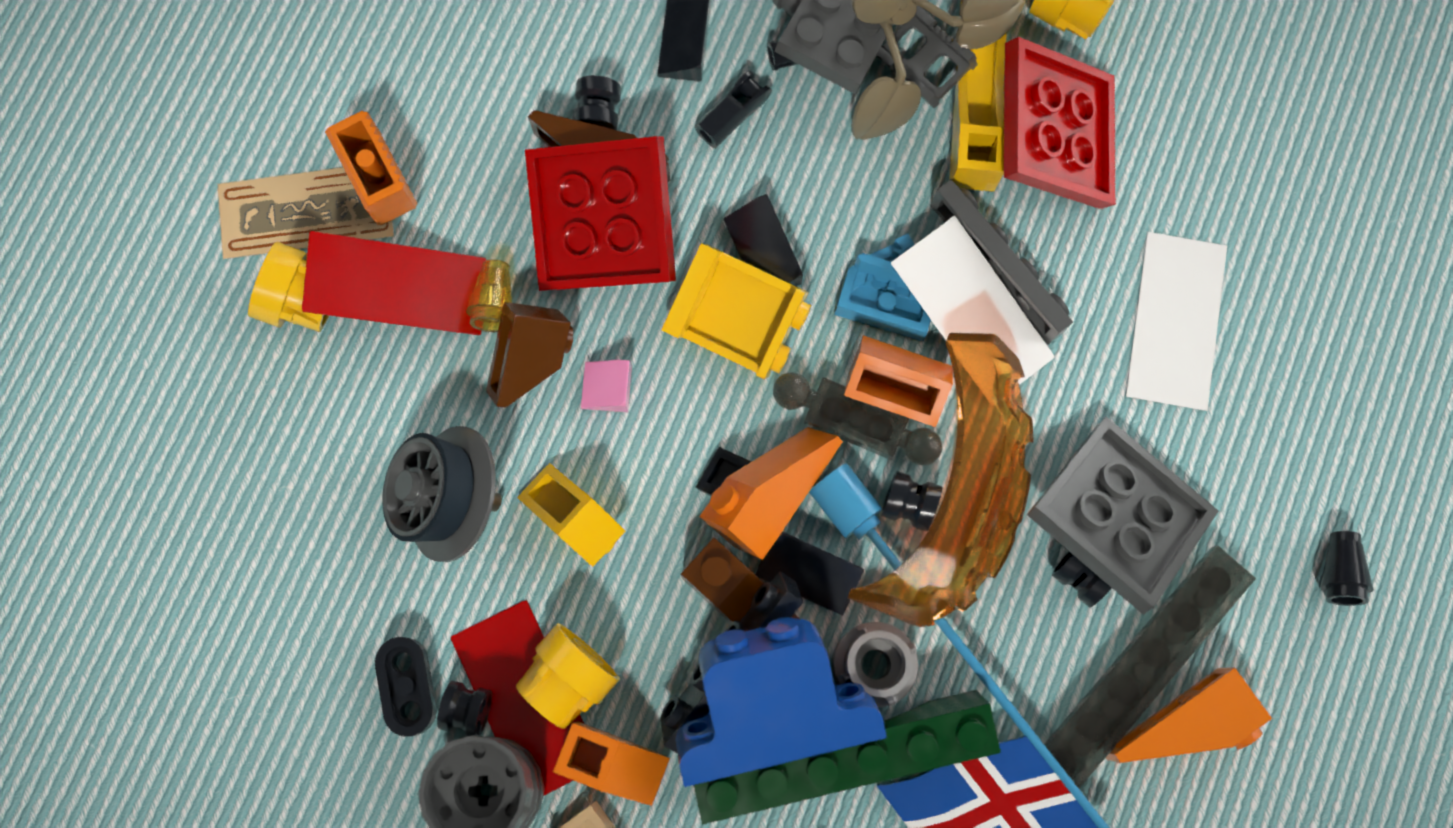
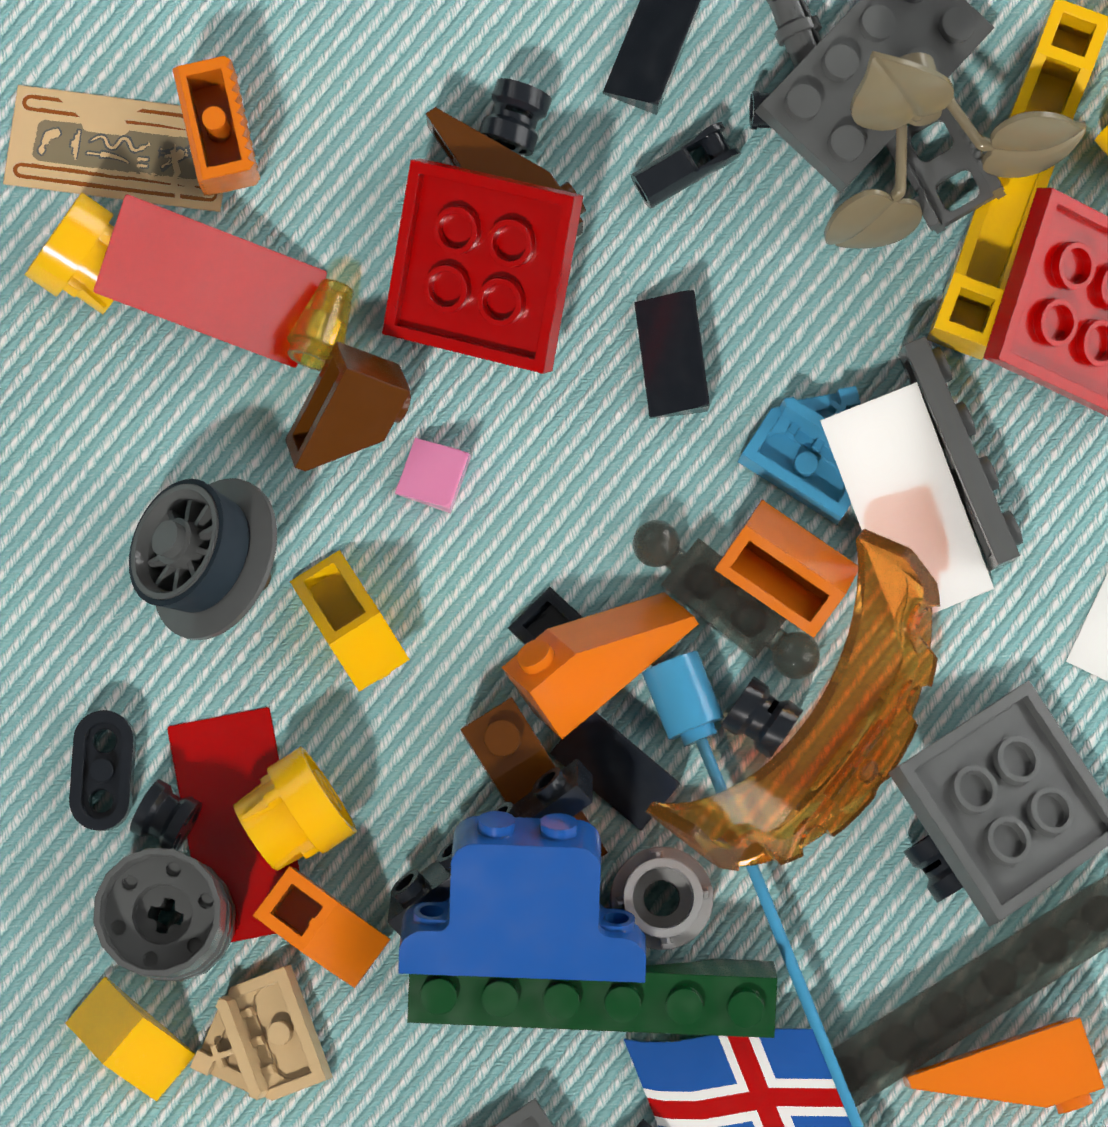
camera: 15 degrees right, 5 degrees up
(737, 311) = (617, 428): yellow panel -> none

